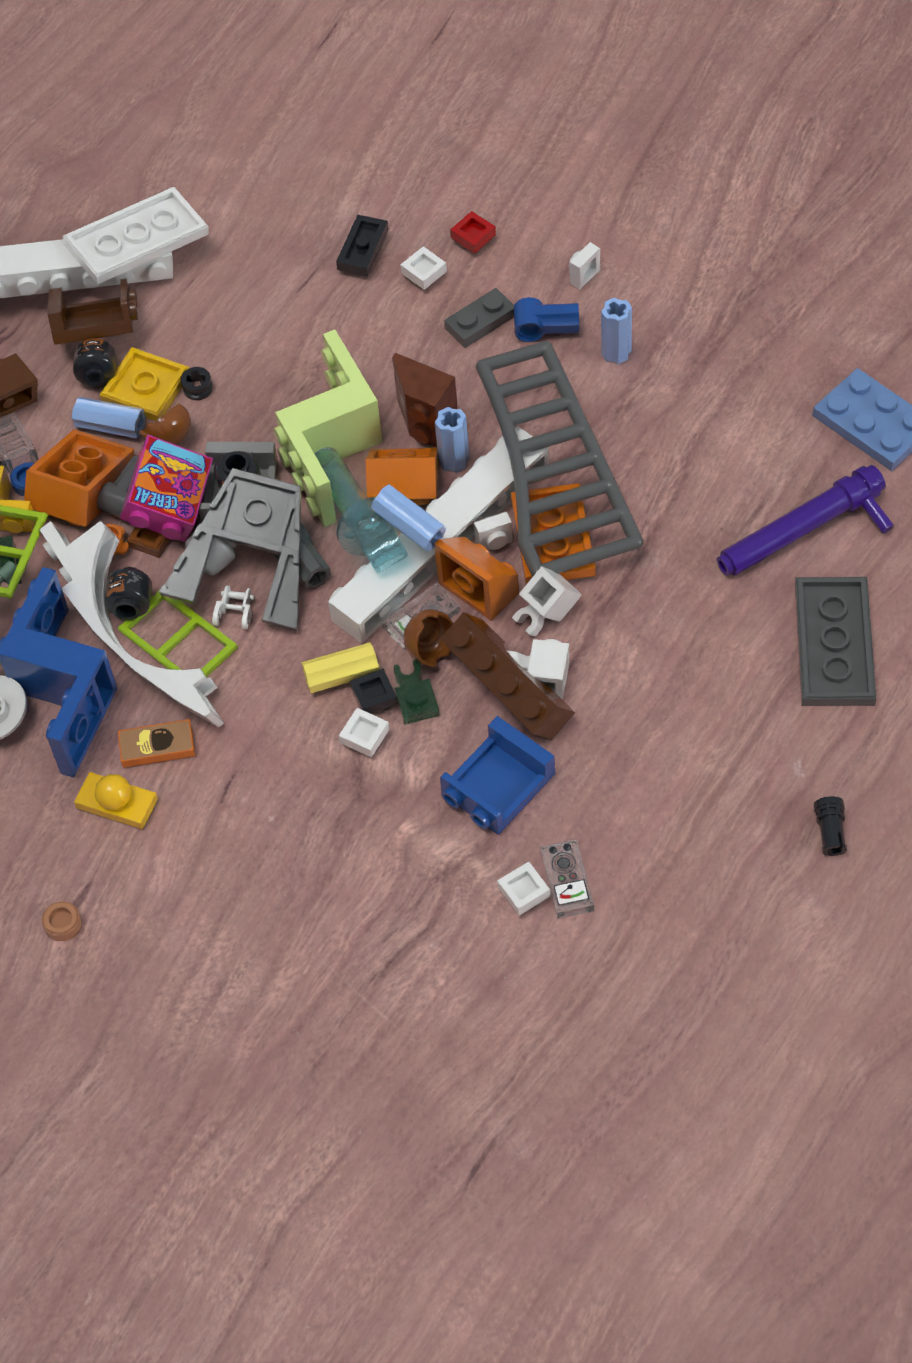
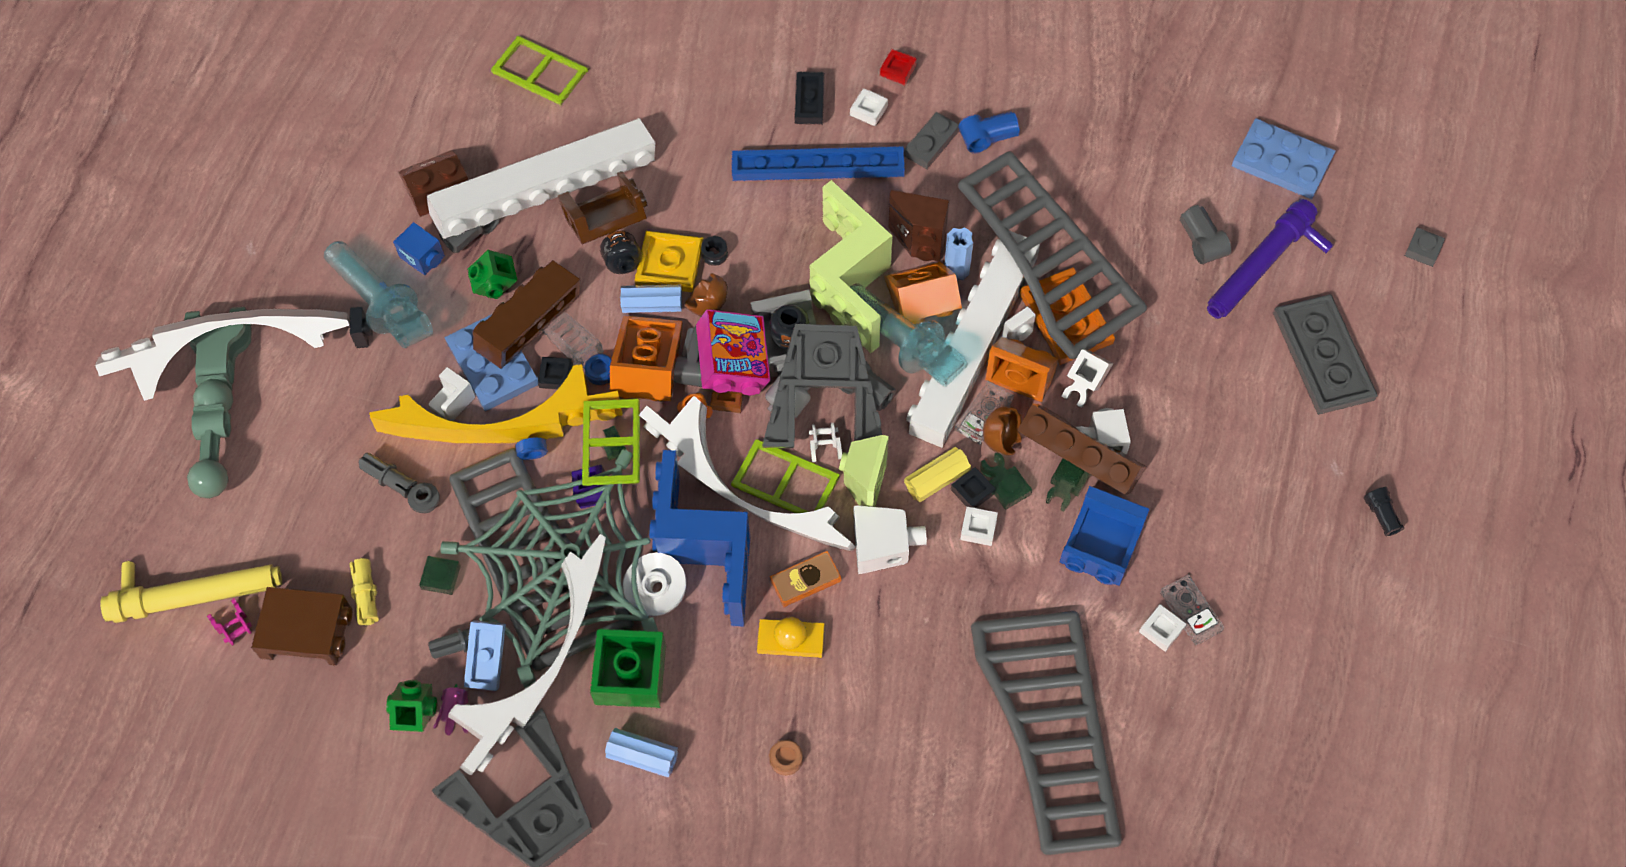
camera: 20 degrees left, 5 degrees up
(72, 172) = (529, 83): none -> lime window
(128, 593) = (732, 452): black head -> none
(135, 235) = (618, 131): white tile -> none
(253, 720) = (883, 538): none -> white torso
(264, 645) = (865, 468): none -> yellowish green slope
(324, 979) = (1029, 749): none -> dark grey bar
(344, 316) = (818, 163): none -> blue plate
(408, 517) = (962, 333): light blue axle -> none
(482, 709) = (1067, 480): none -> clear green plate
(584, 265) = (1002, 76): white plate -> none
(616, 330) = (1056, 128): light blue axle -> none
(745, 487) = (1207, 241): none -> dark grey piece

